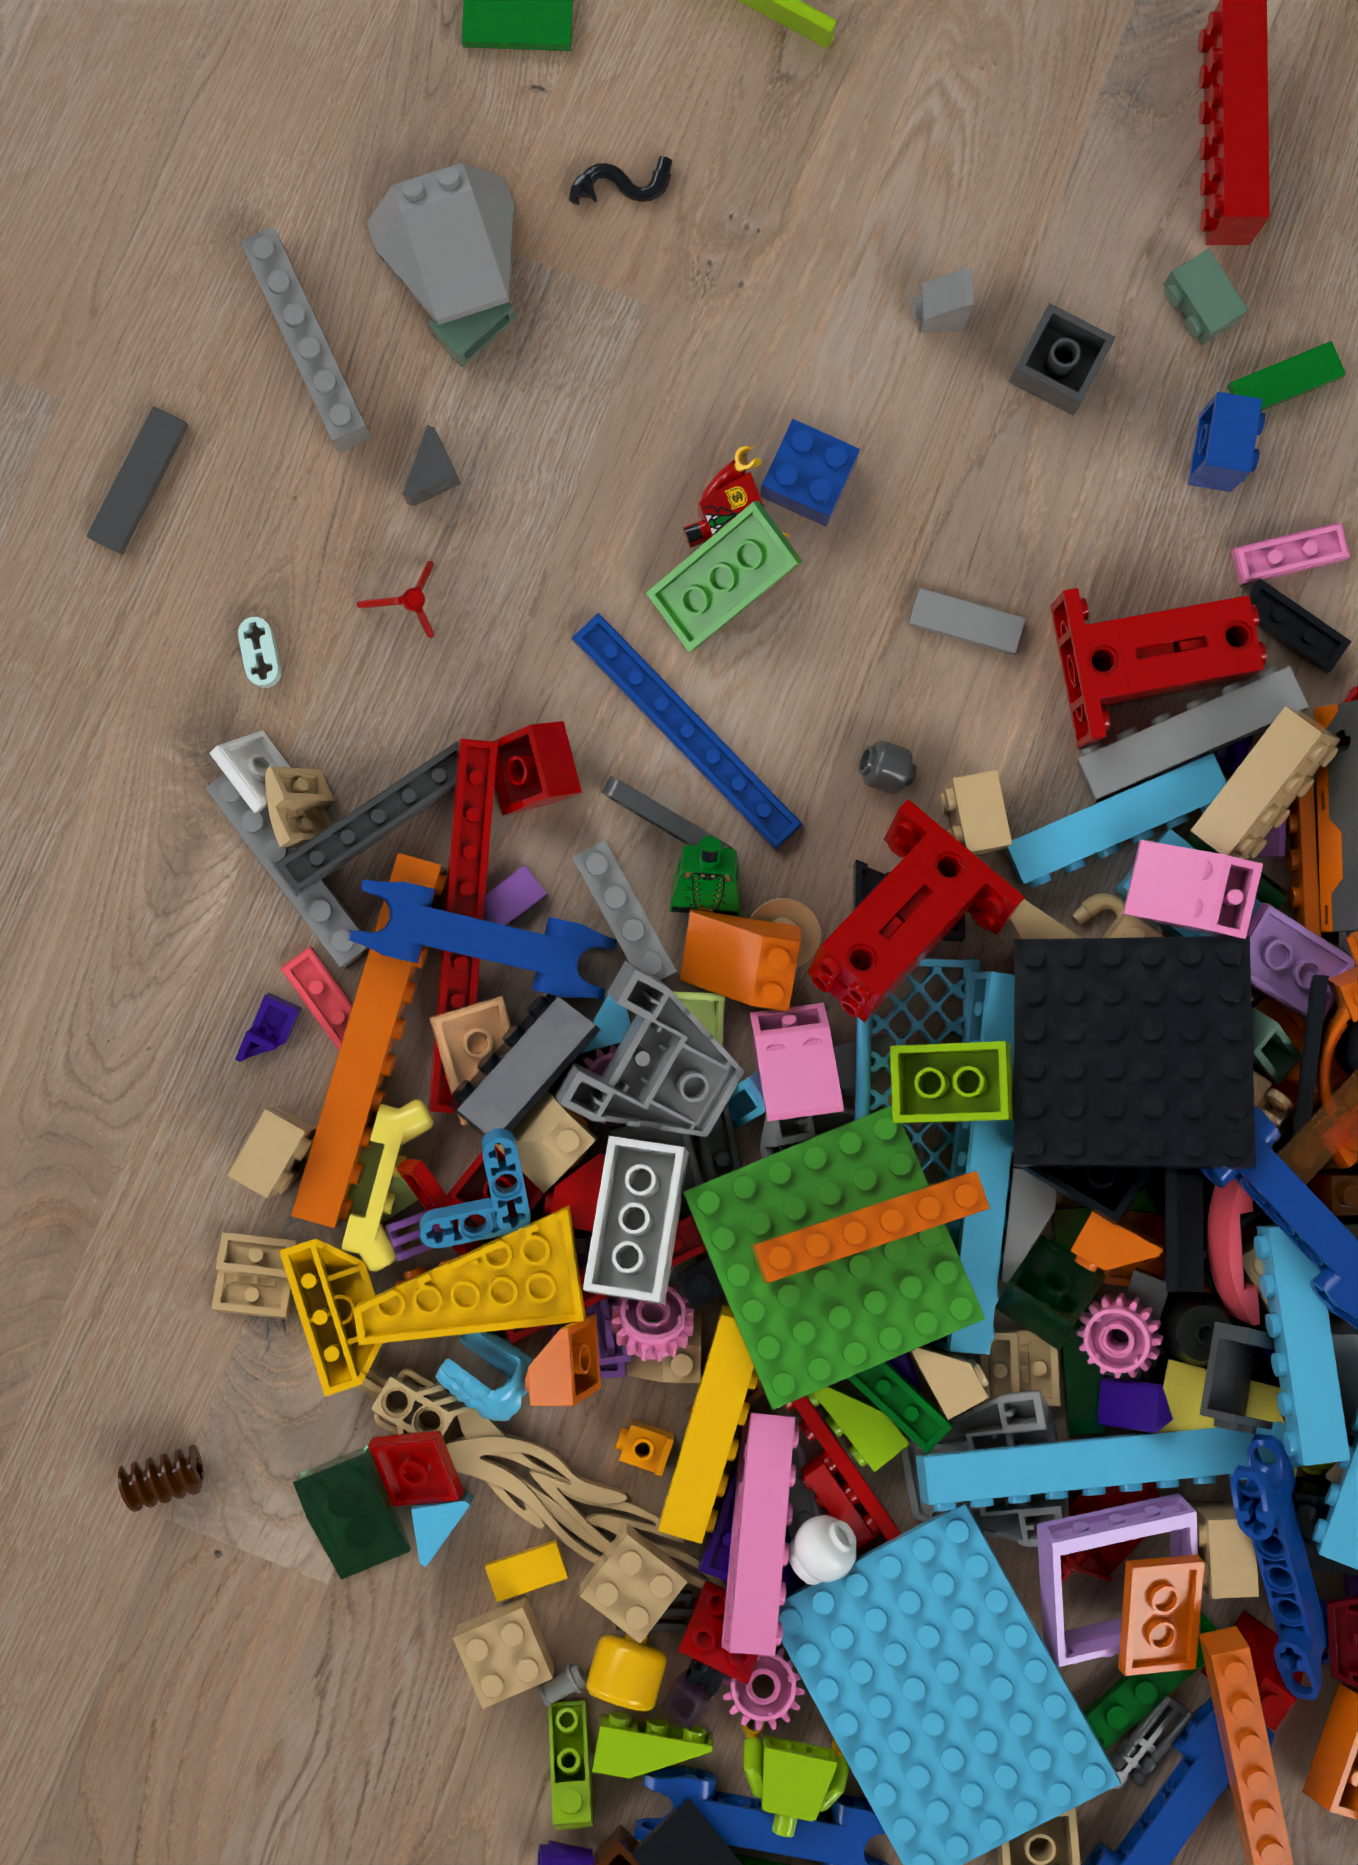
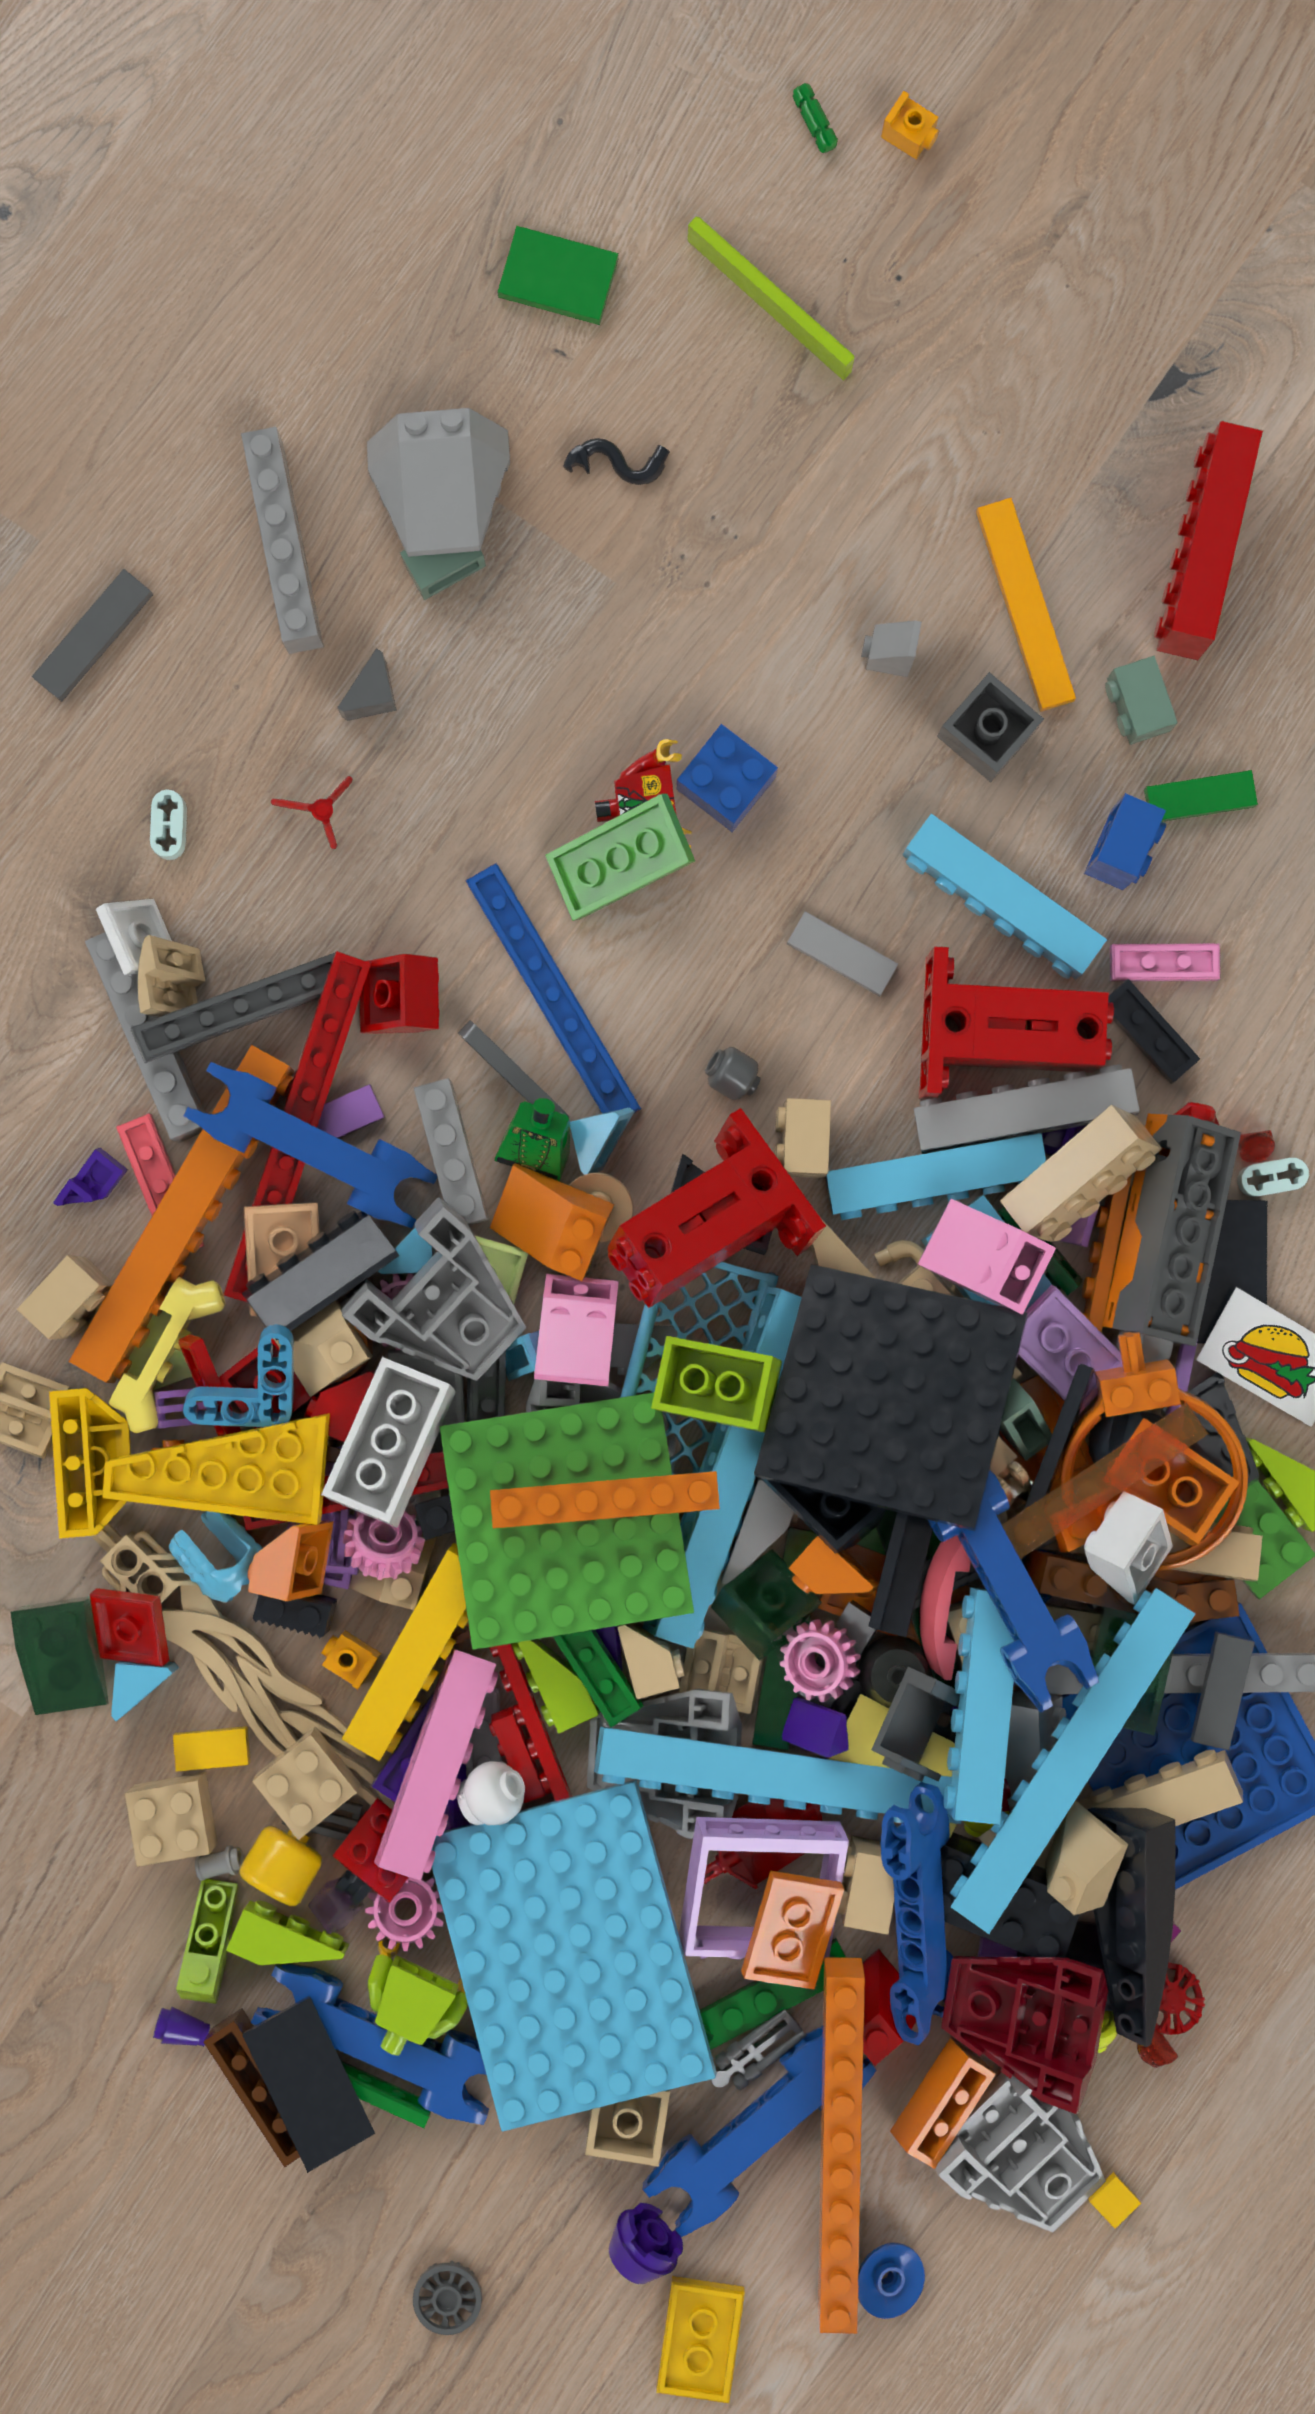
camera: 10 degrees right, 0 degrees up
(591, 1414) = (305, 1614): none -> black brick
(767, 862) = (597, 1137): none -> medium azure slope
(1065, 229) = (1025, 604): none -> light orange tile
(1115, 527) = (1003, 897): none -> medium azure brick

